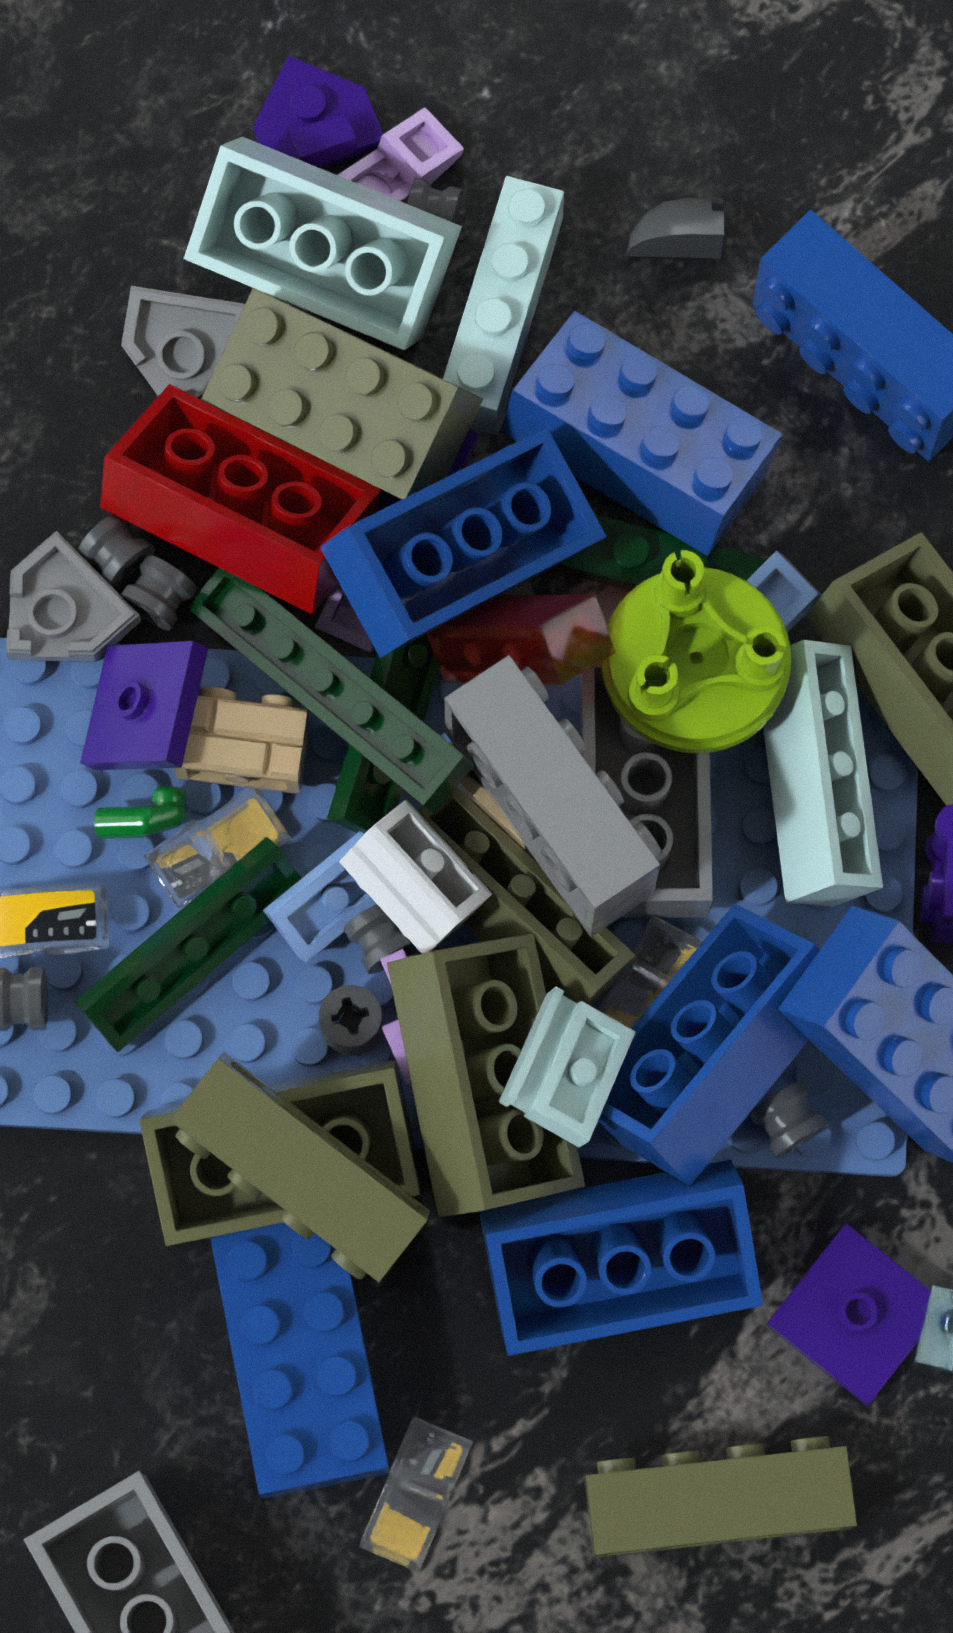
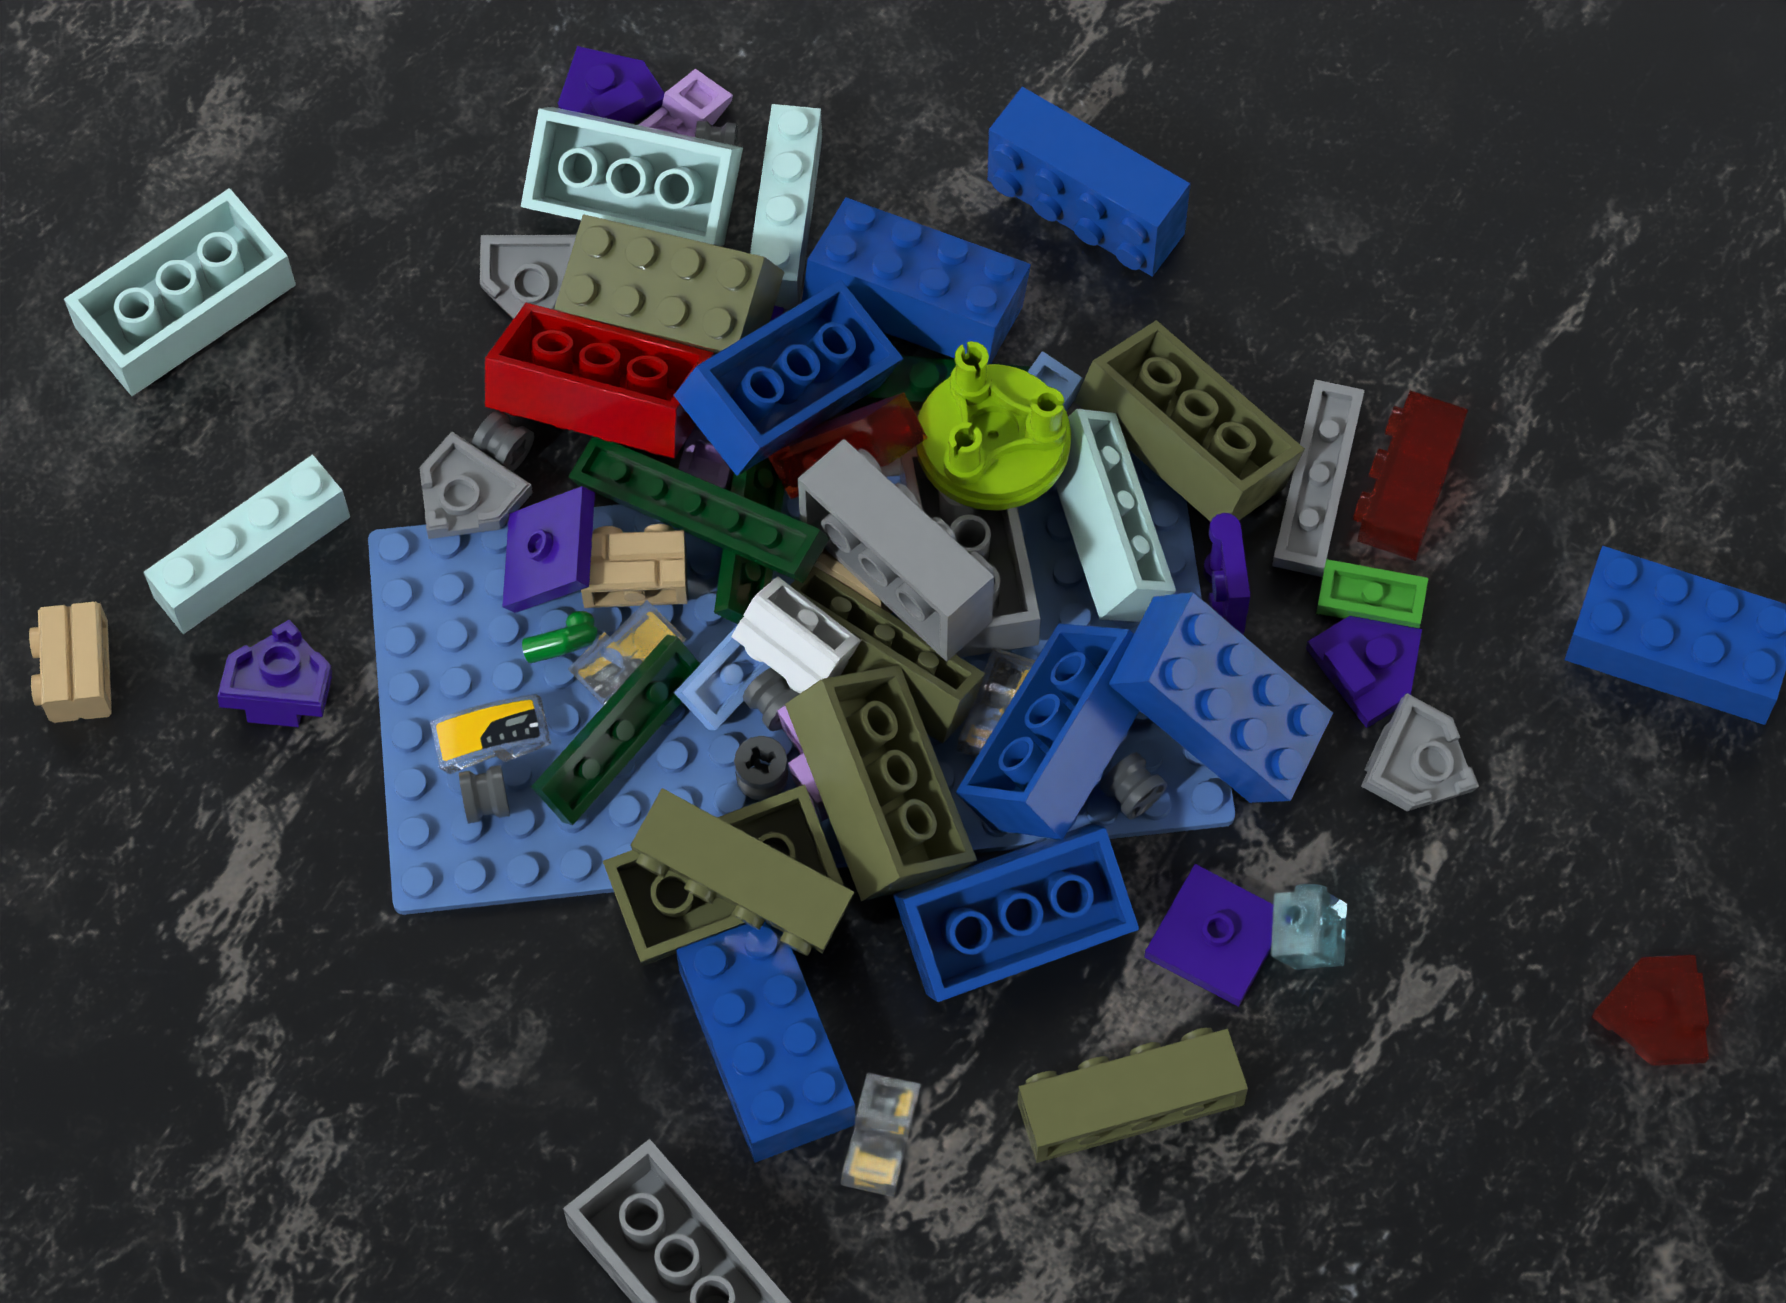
camera: 10 degrees left, 10 degrees down
(159, 592) = (544, 466): dark grey wheel -> none
(567, 1067) = (946, 762): light aqua plate -> none
(680, 230) = (919, 130): dark grey brick -> none

